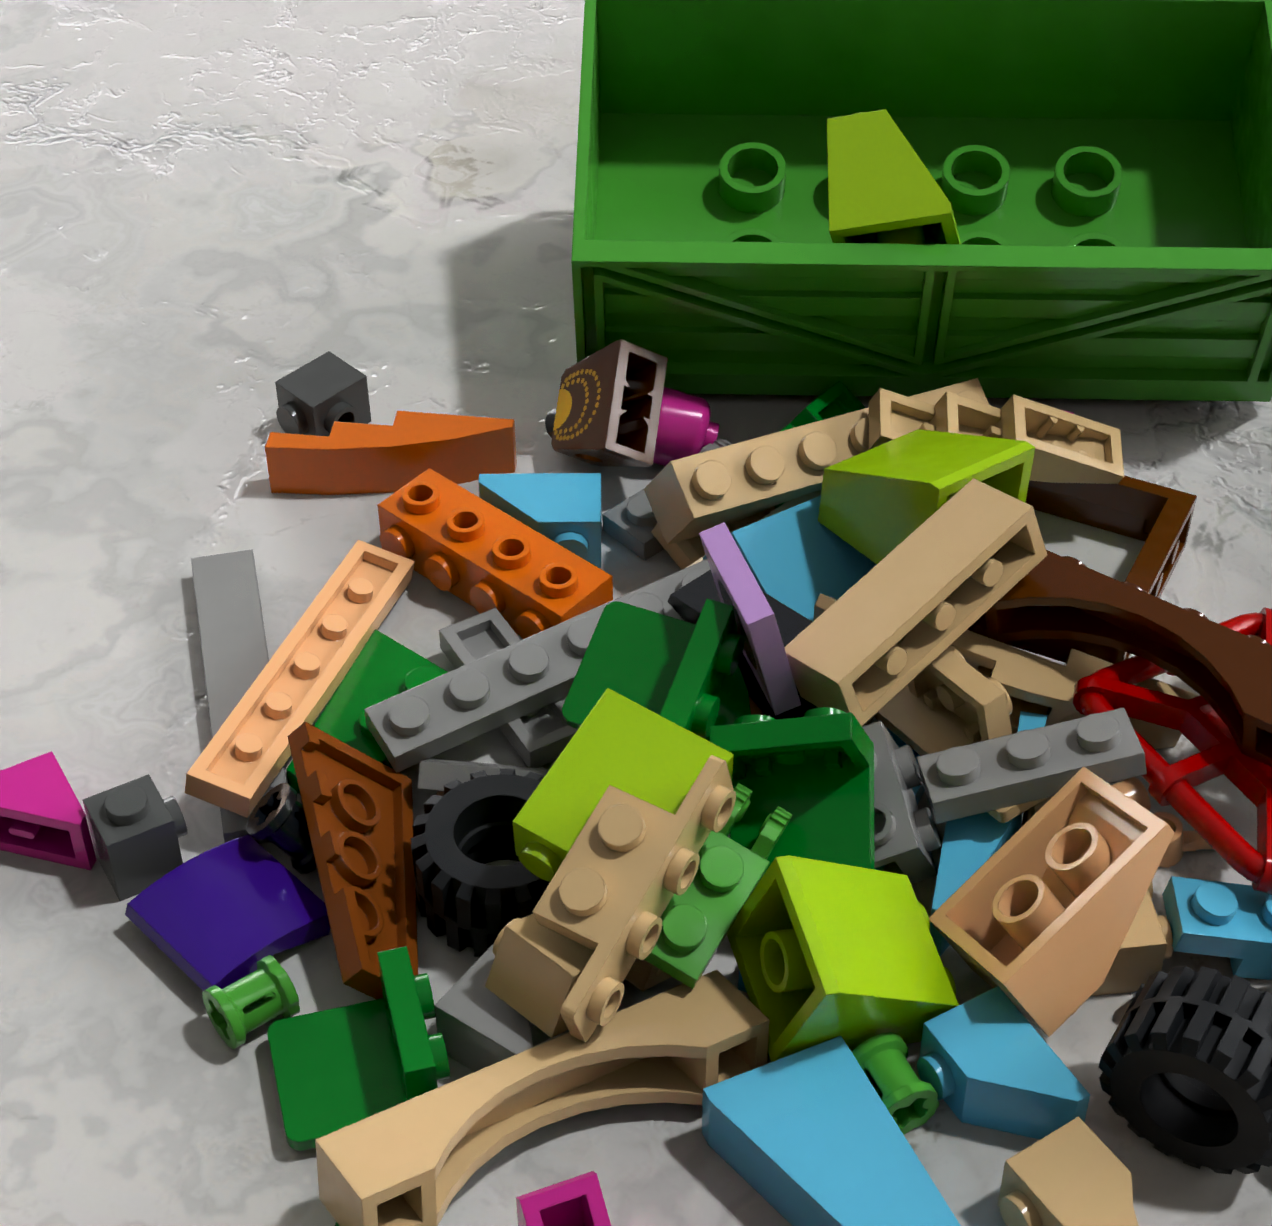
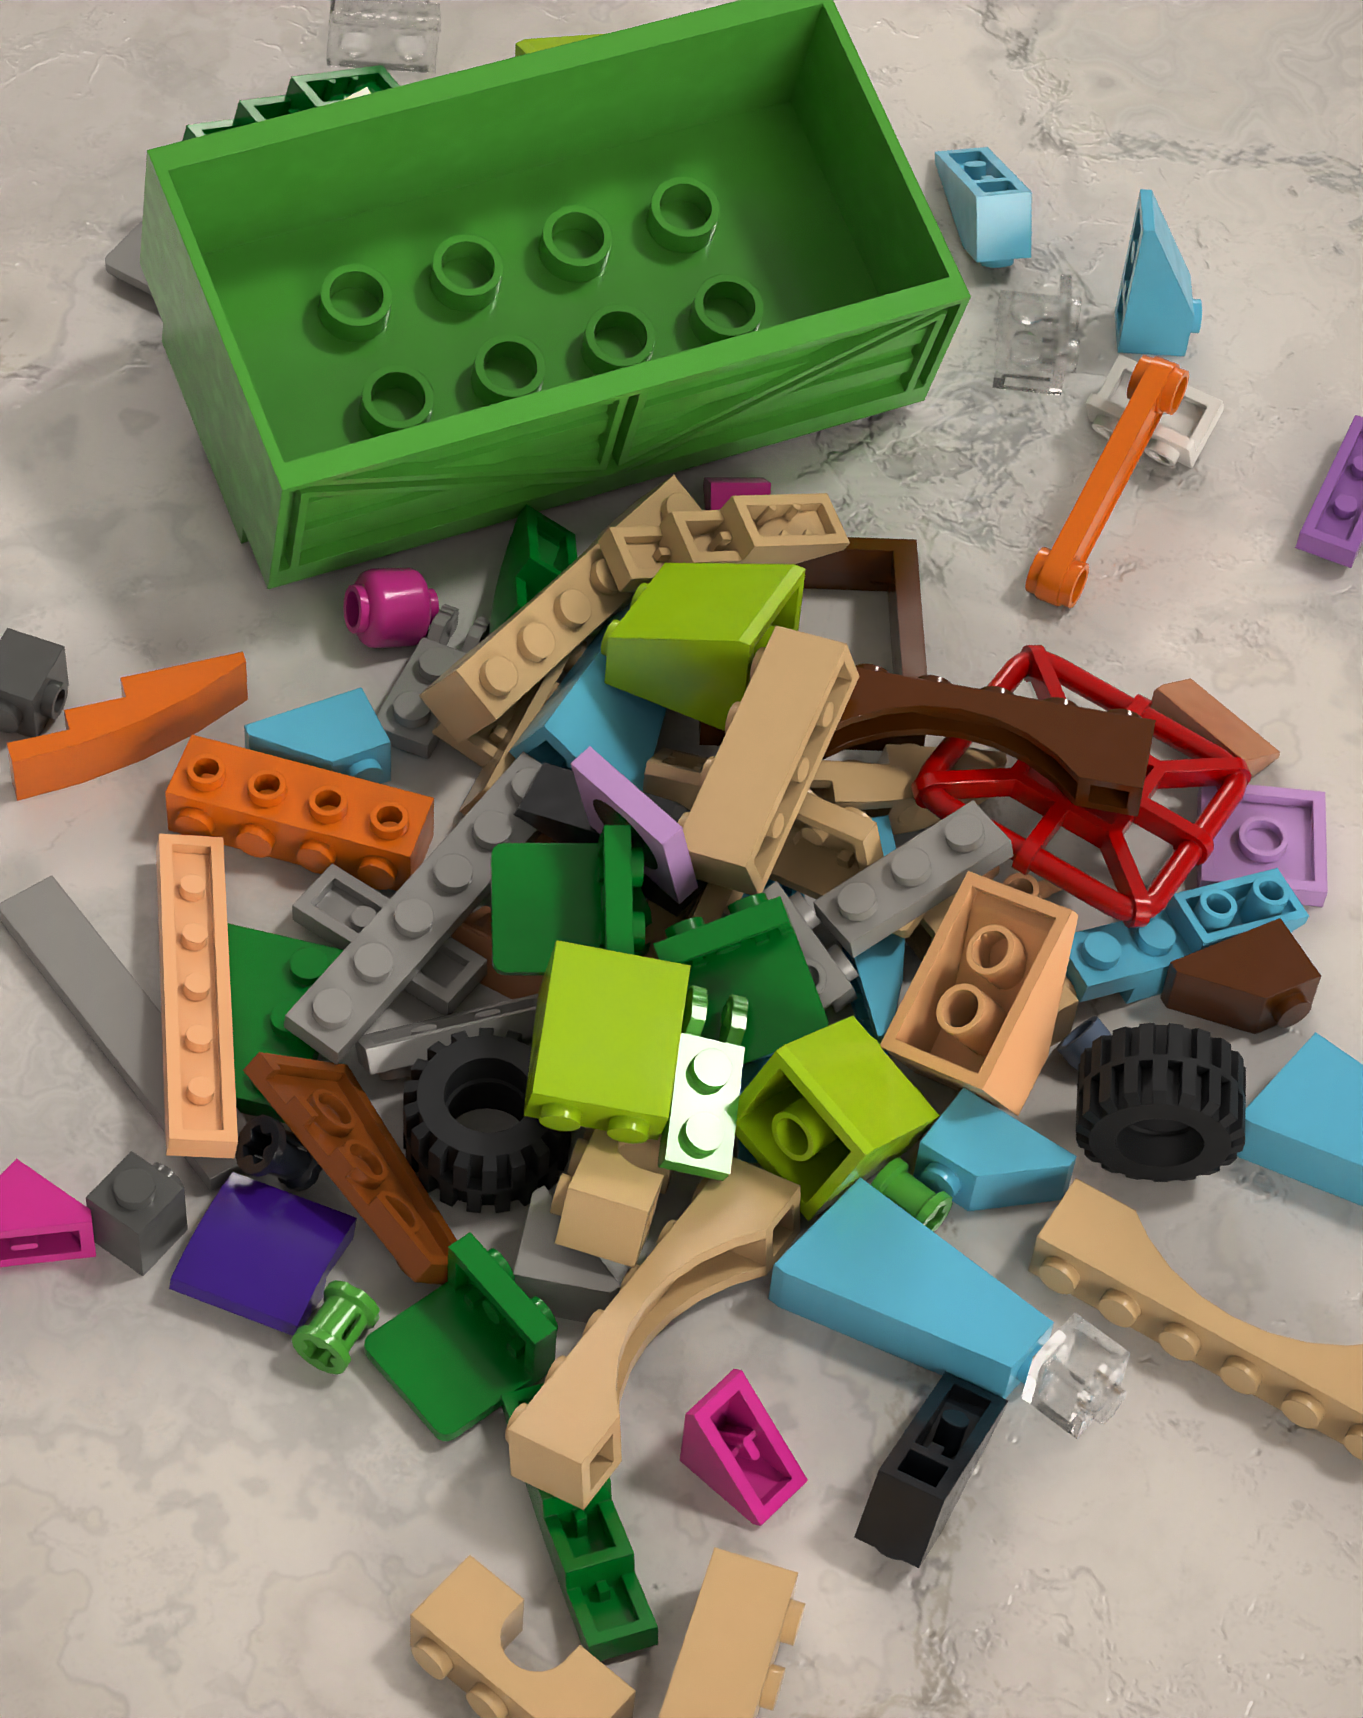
camera: 30 degrees left, 10 degrees up
(610, 407) = (331, 611): reddish brown torso -> none
(621, 882) = (645, 1114): tan bracket -> none
(881, 186) = (542, 319): lime slope -> none

